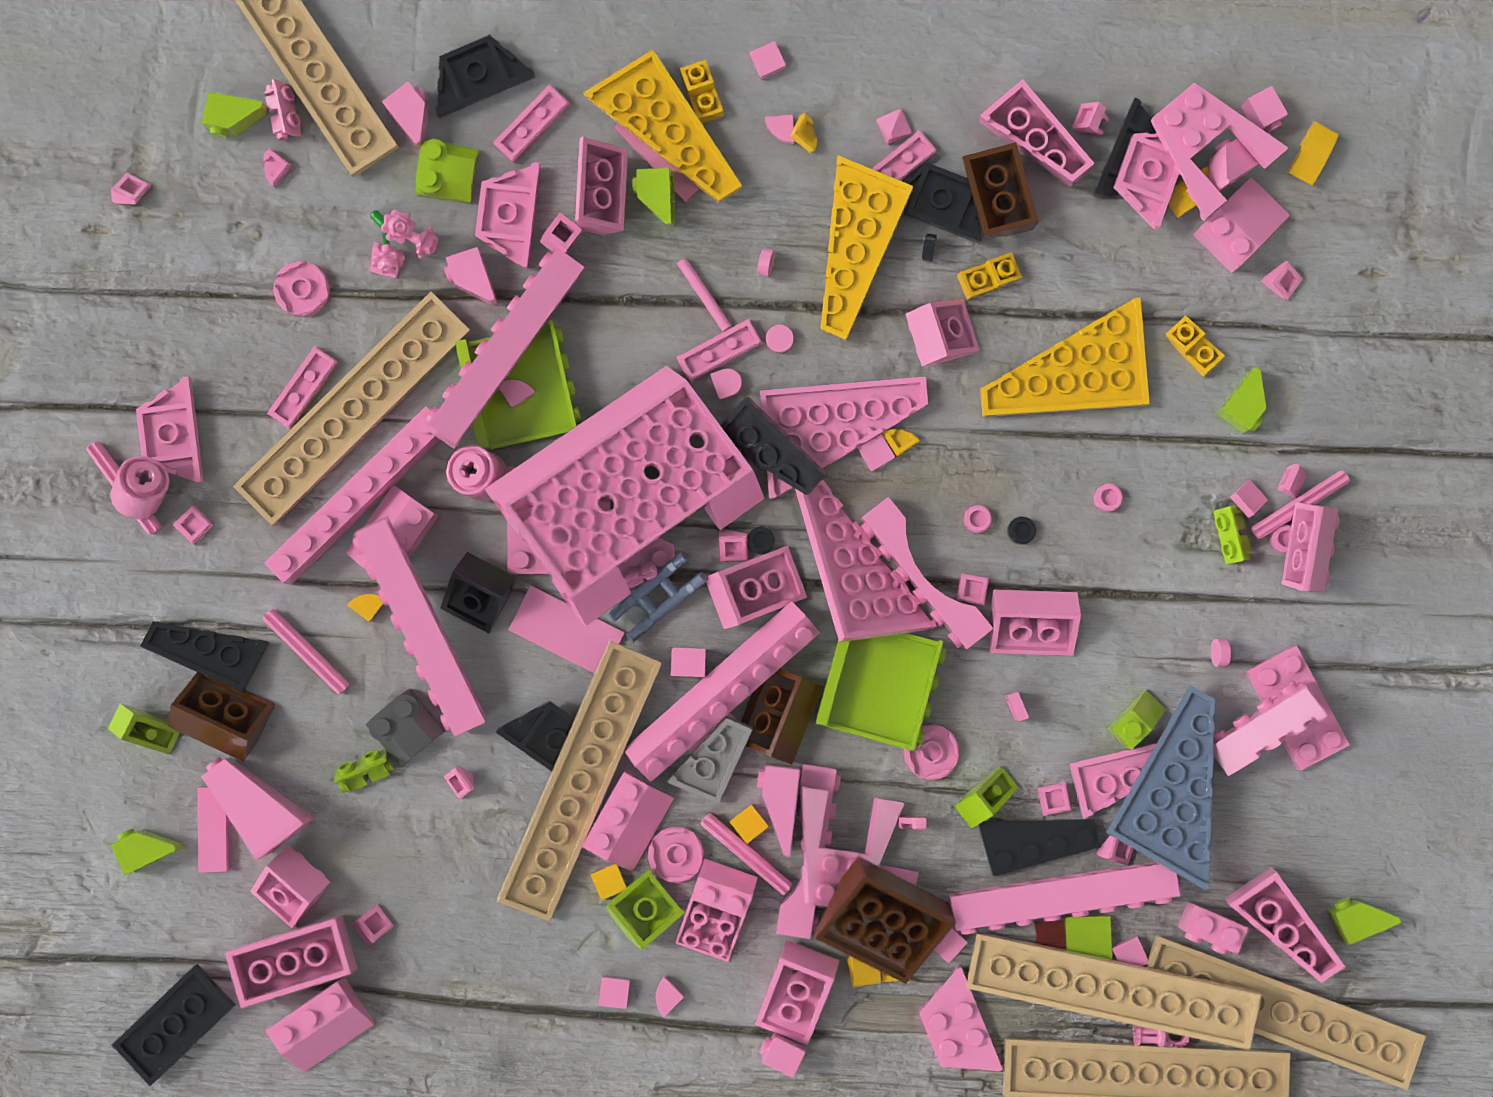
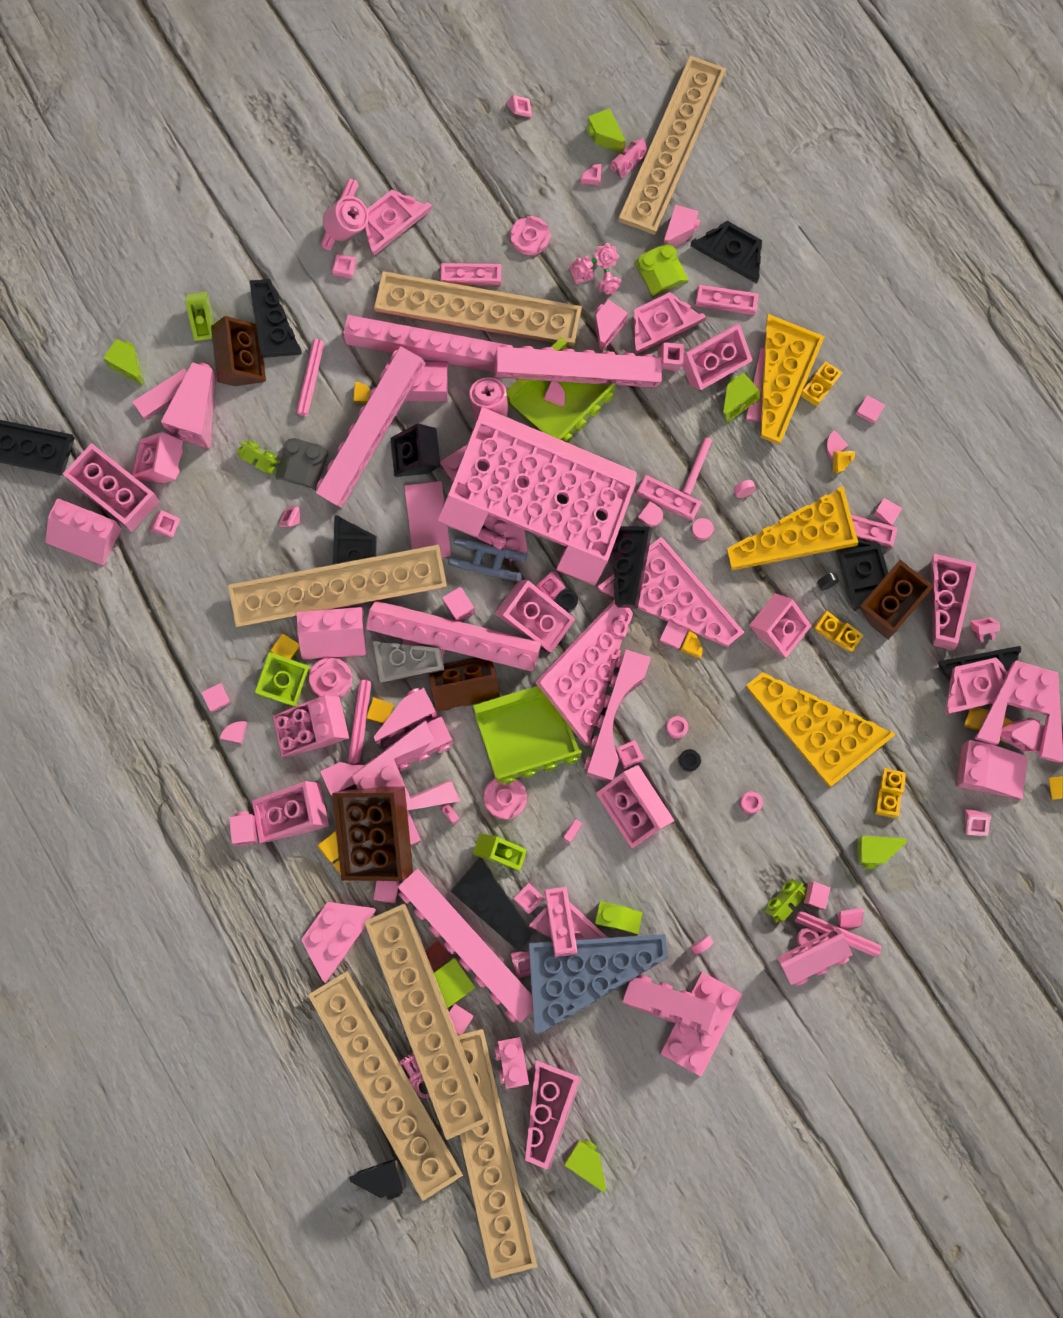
camera: 55 degrees right, 10 degrees down
(1105, 784) = (560, 922): none -> bright pink tile

